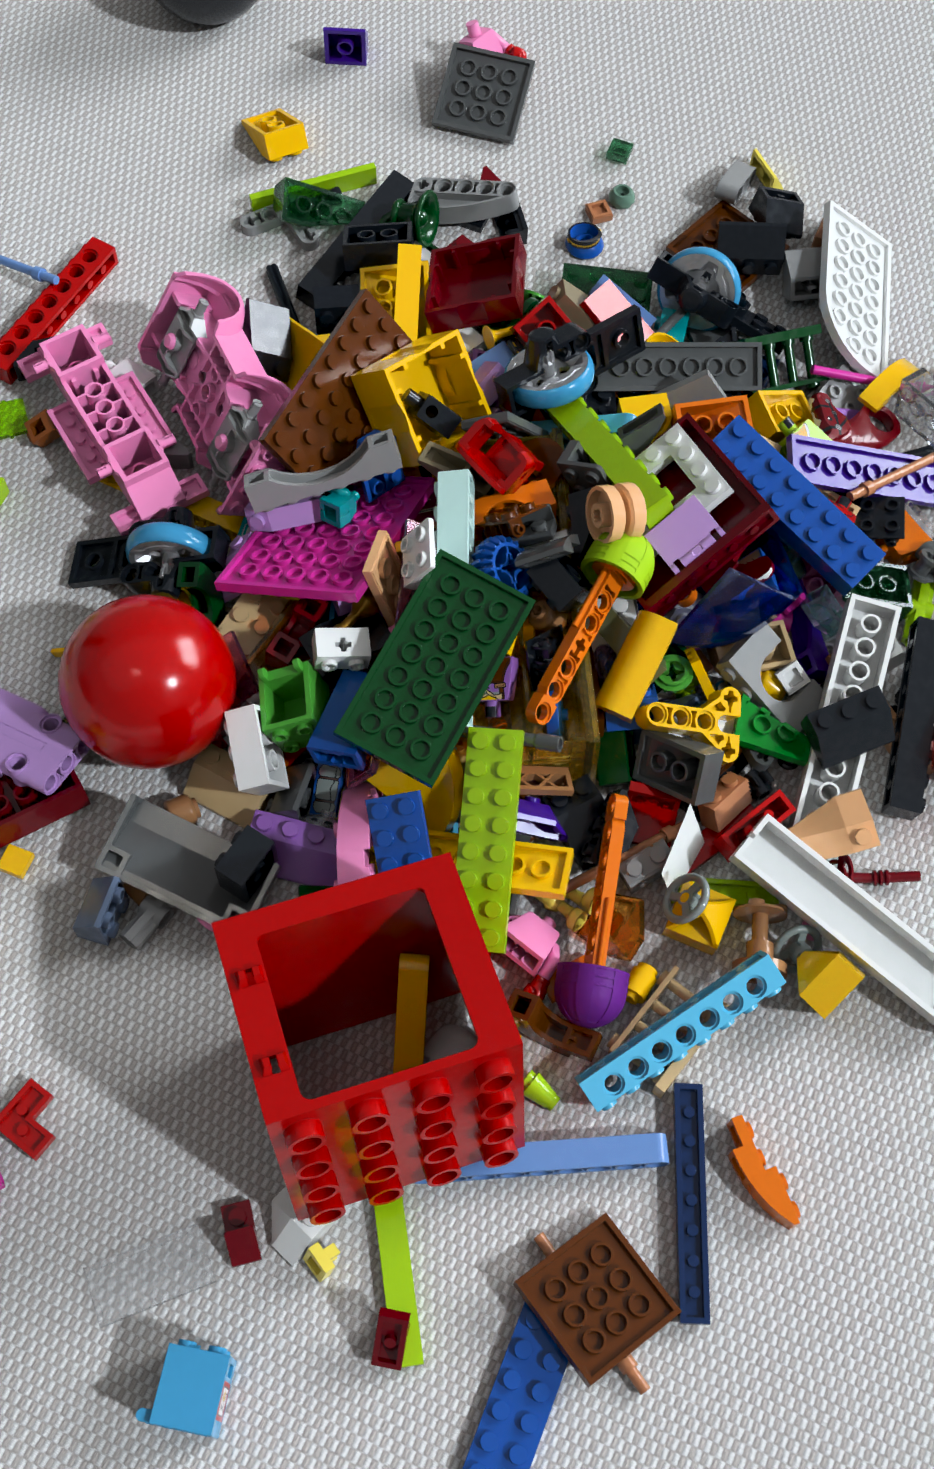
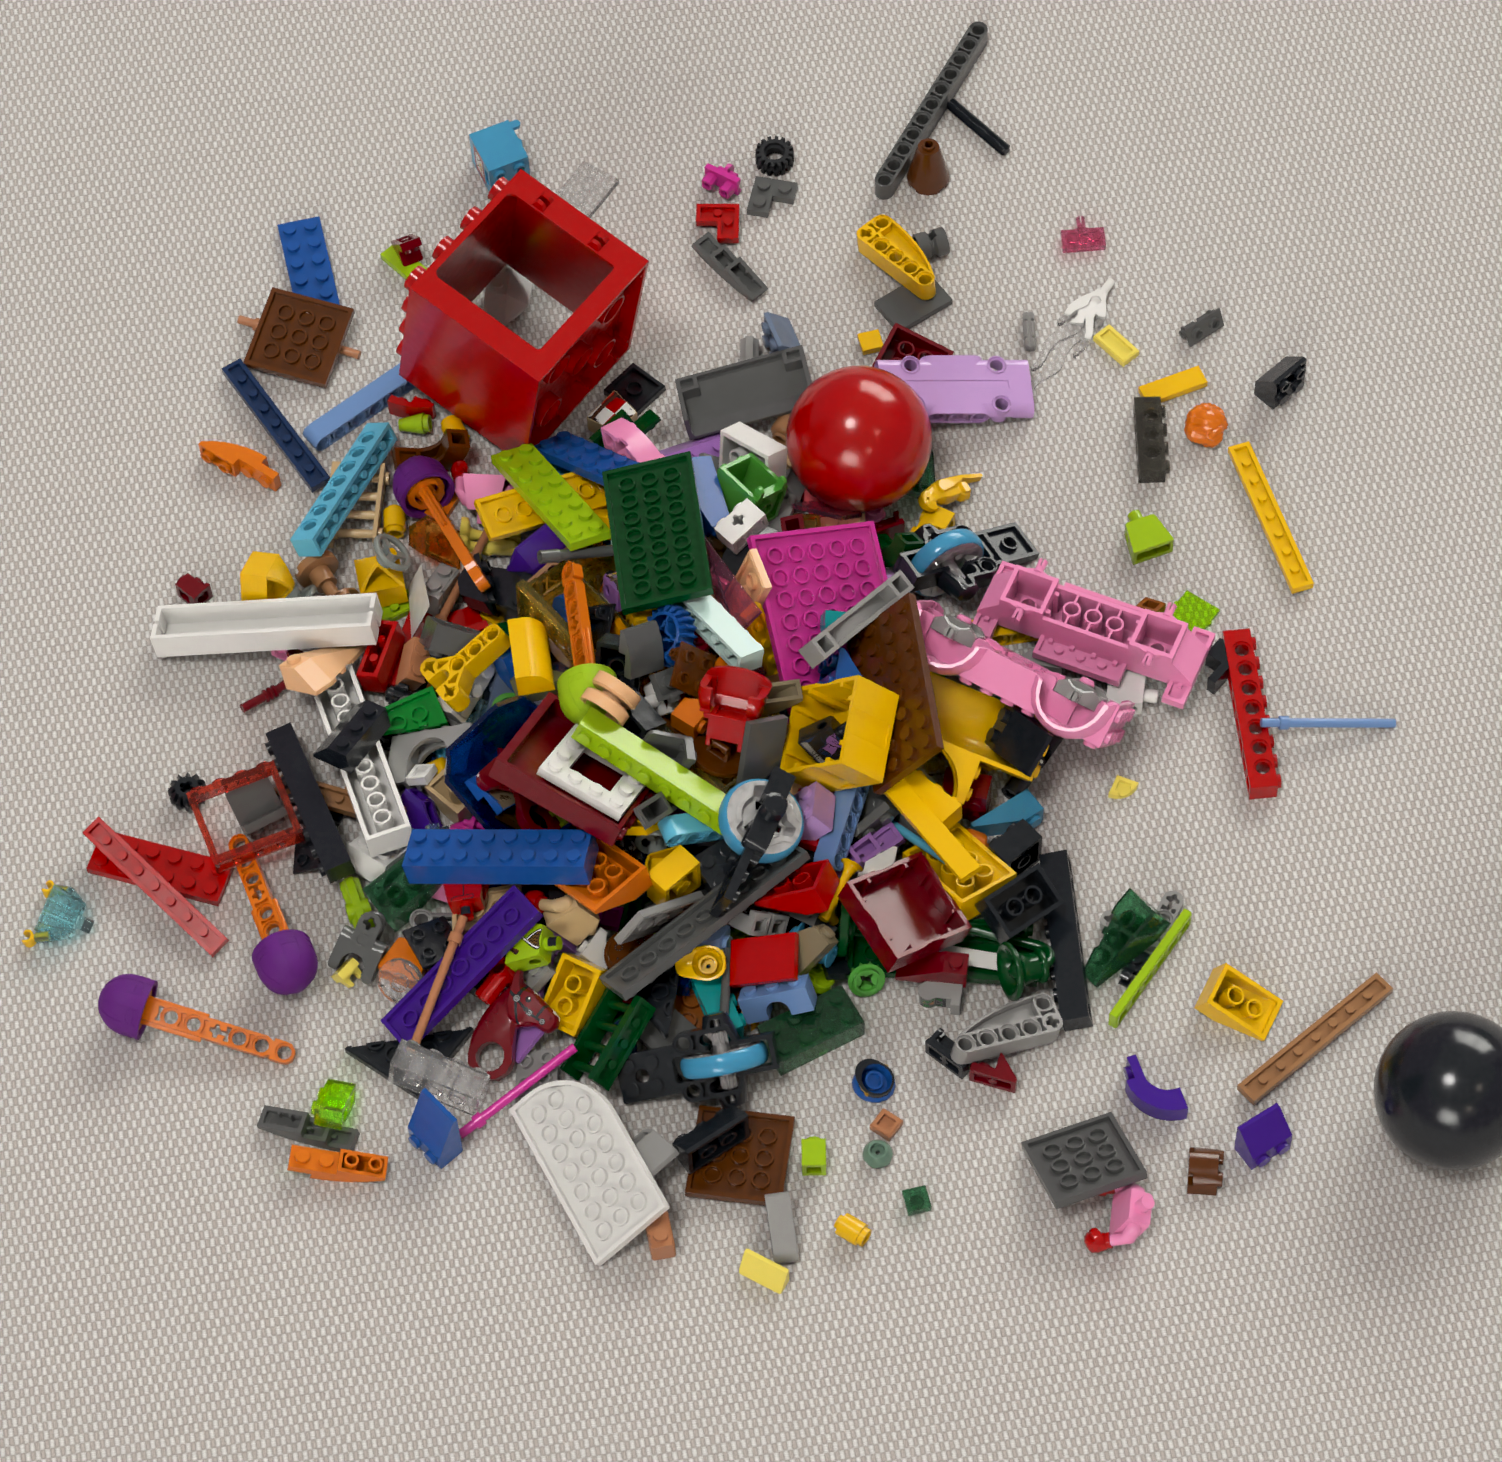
camera: 150 degrees right, 5 degrees down
(69, 1053) = (728, 267): none -> dark grey slope
(244, 84) = (1314, 1038): none -> medium nougat plate
(245, 863) = (705, 405): black brick -> none
(280, 290) = (1078, 852): black axle -> none
(393, 107) = (1153, 1101): none -> dark purple arch
(399, 58) = (1203, 1171): none -> reddish brown cylinder
(418, 554) = (727, 588): white bracket -> none
(540, 1121) = (403, 408): none -> red slope
(672, 215) = (813, 1156): none -> lime brick
(682, 157) = (852, 1229): none -> yellow brick
(684, 534) = (552, 729): lavender piece -> none
(779, 206) = (715, 1209): black slope -> none
(886, 384) = (502, 1102): yellow slope -> none
(900, 1046) = (193, 589): none -> dark red brick

